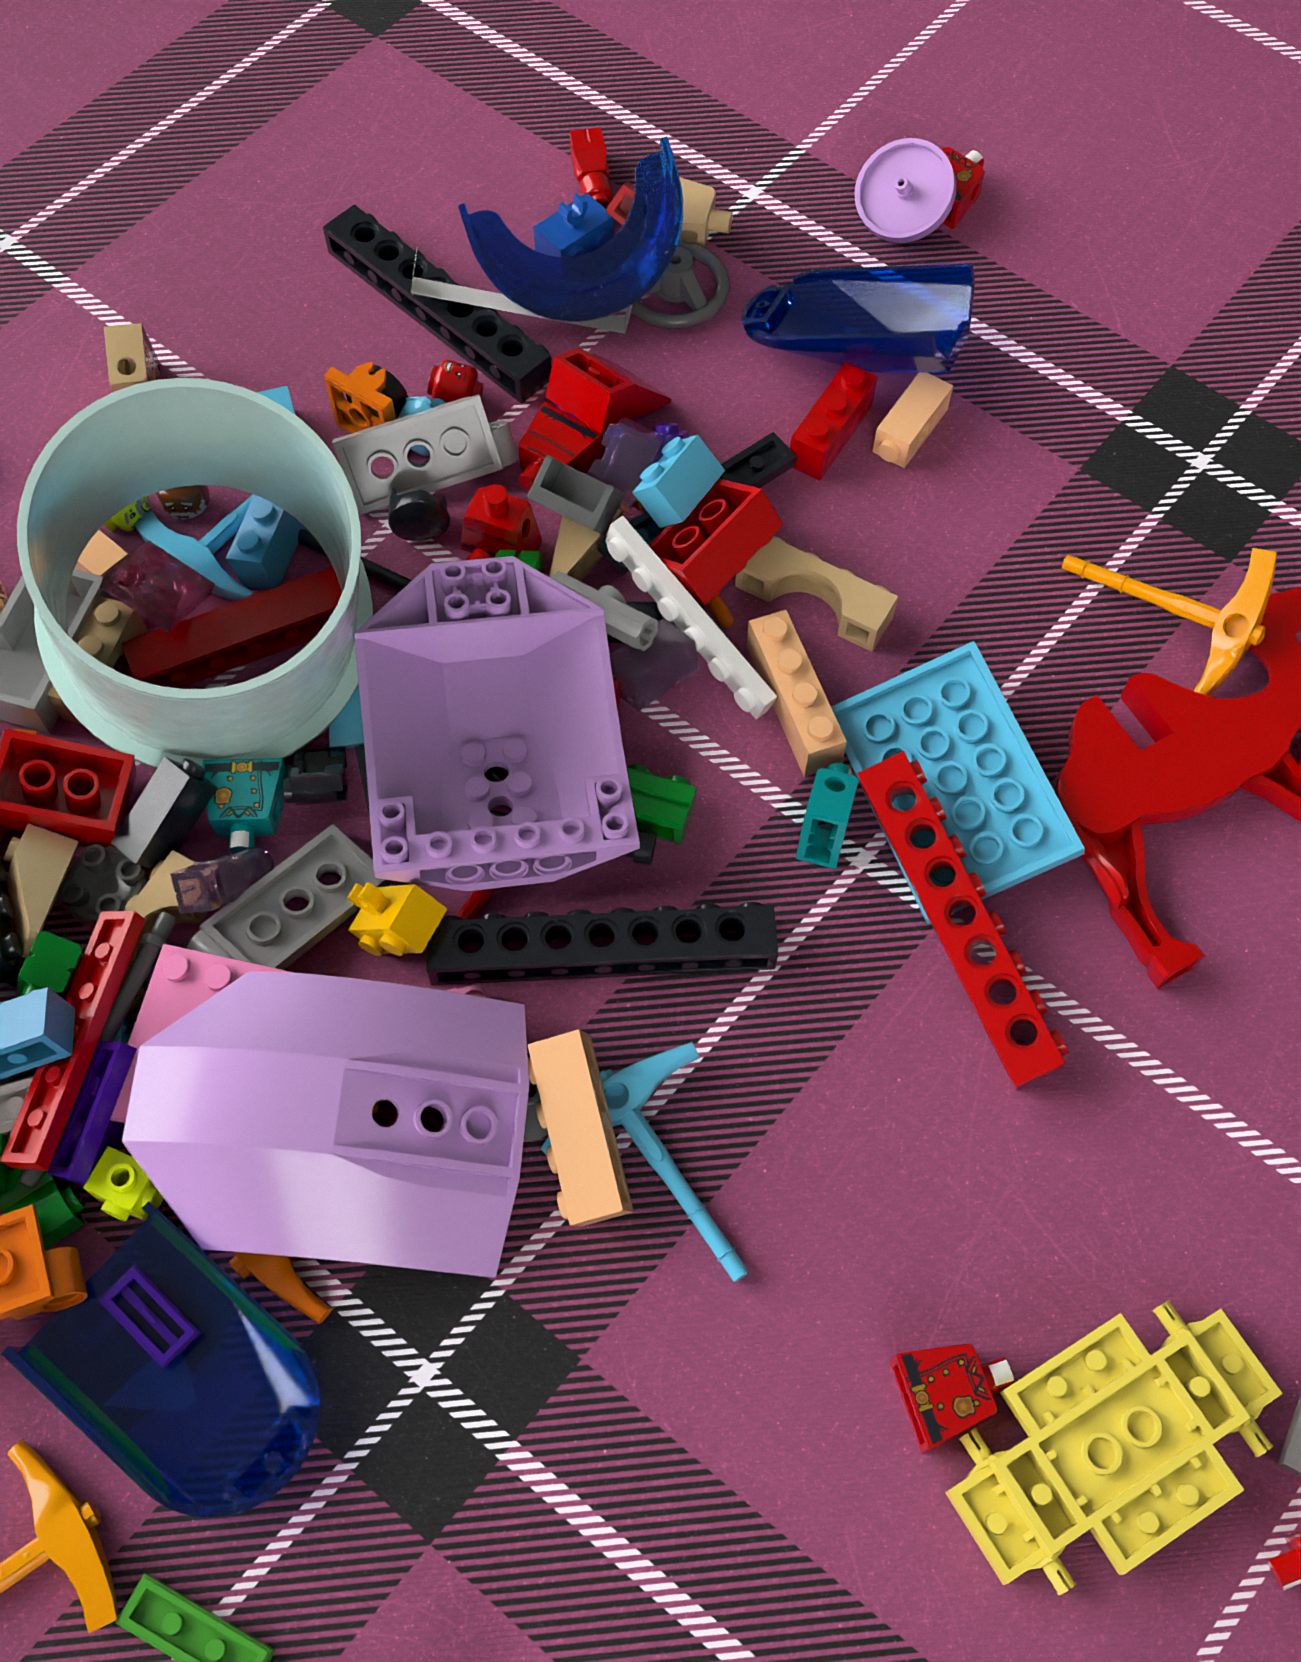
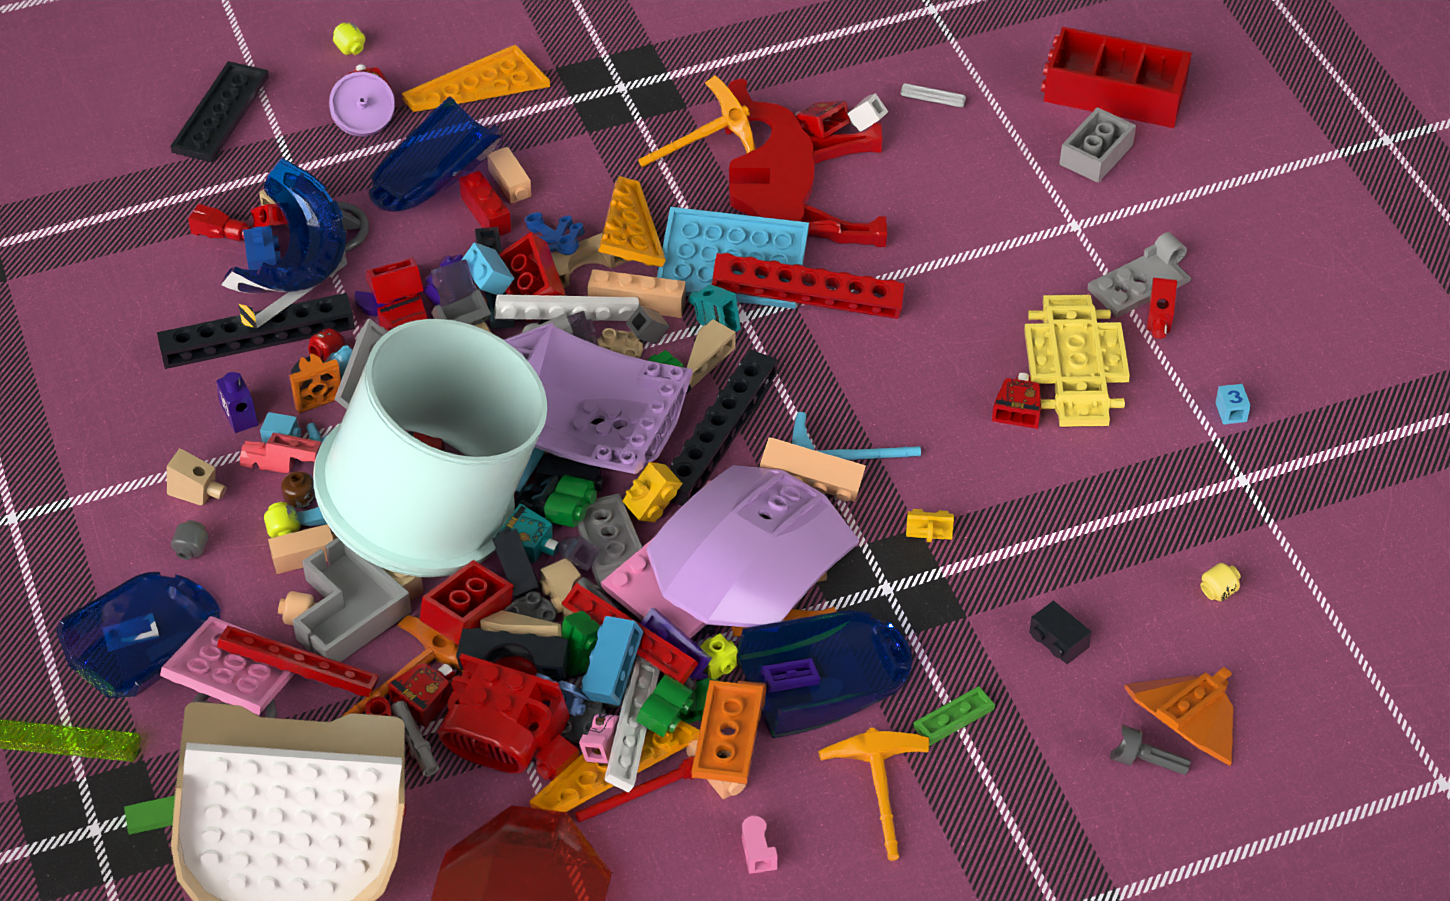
camera: 60 degrees left, 15 degrees down
(36, 423) = (189, 540): none -> dark grey head
(292, 344) = (231, 392): none -> dark purple torso
(319, 819) = (570, 501): none -> green brick
(574, 1382) = (929, 525): none -> yellow hips
(681, 726) = (621, 342): none -> tan dish
(737, 738) = (647, 324): none -> dark grey brick
(746, 846) = (711, 346): none -> tan slope
(789, 67) = (219, 111): none -> black plate
(809, 550) = (562, 243): none -> blue plant
(900, 613) = (629, 226): none -> light orange wing
(1019, 118) = (349, 38): none -> neon yellow head
(1082, 302) = (490, 77): none -> light orange wing

